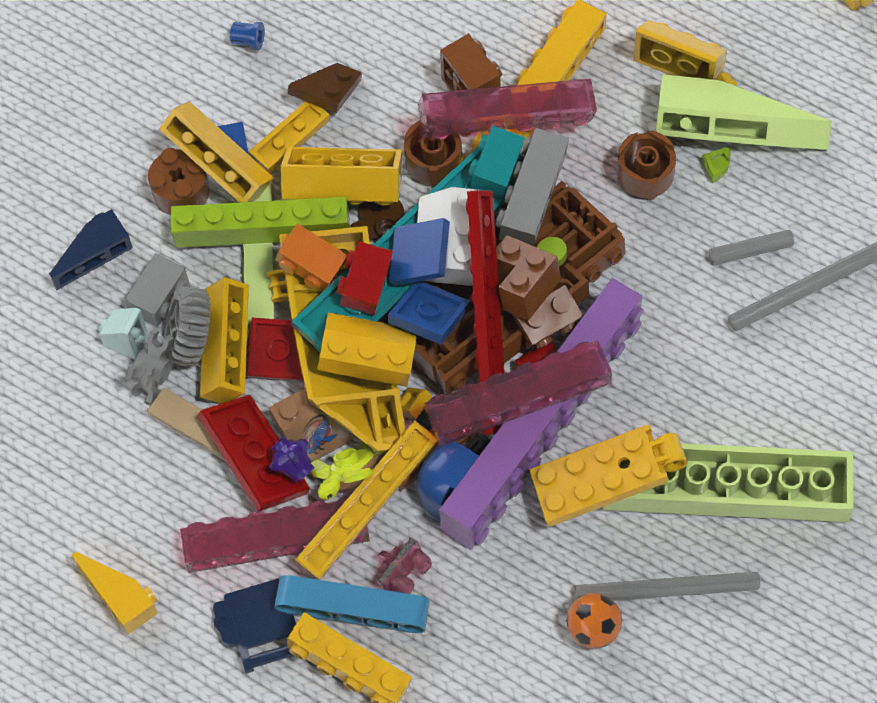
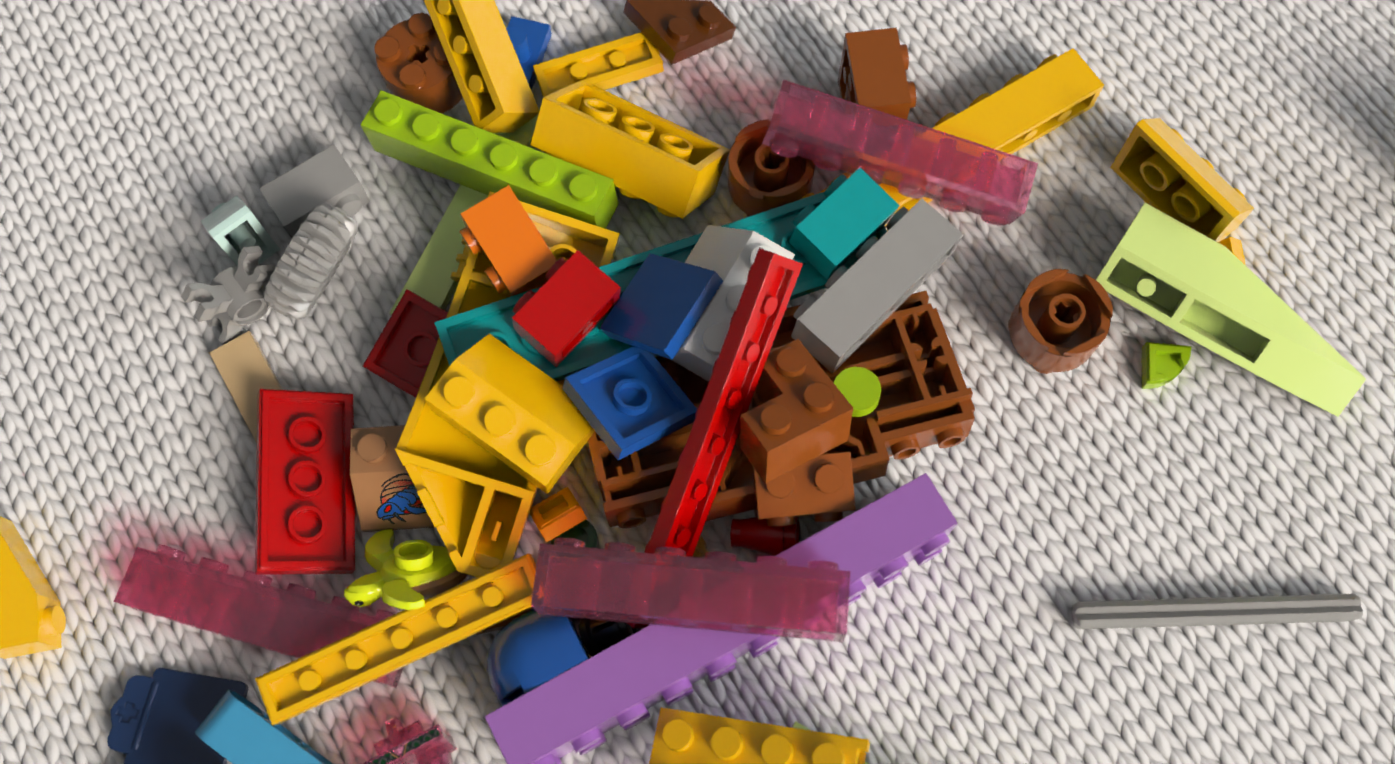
camera: 25 degrees right, 5 degrees up
(94, 246) = (271, 102): dark blue slope -> none
(226, 345) = (355, 306): yellow brick -> none
(291, 458) = (340, 519): dark purple rock -> none
(378, 217) = (651, 229): reddish brown plate -> none
(751, 247) = (1158, 512): light grey axle -> none

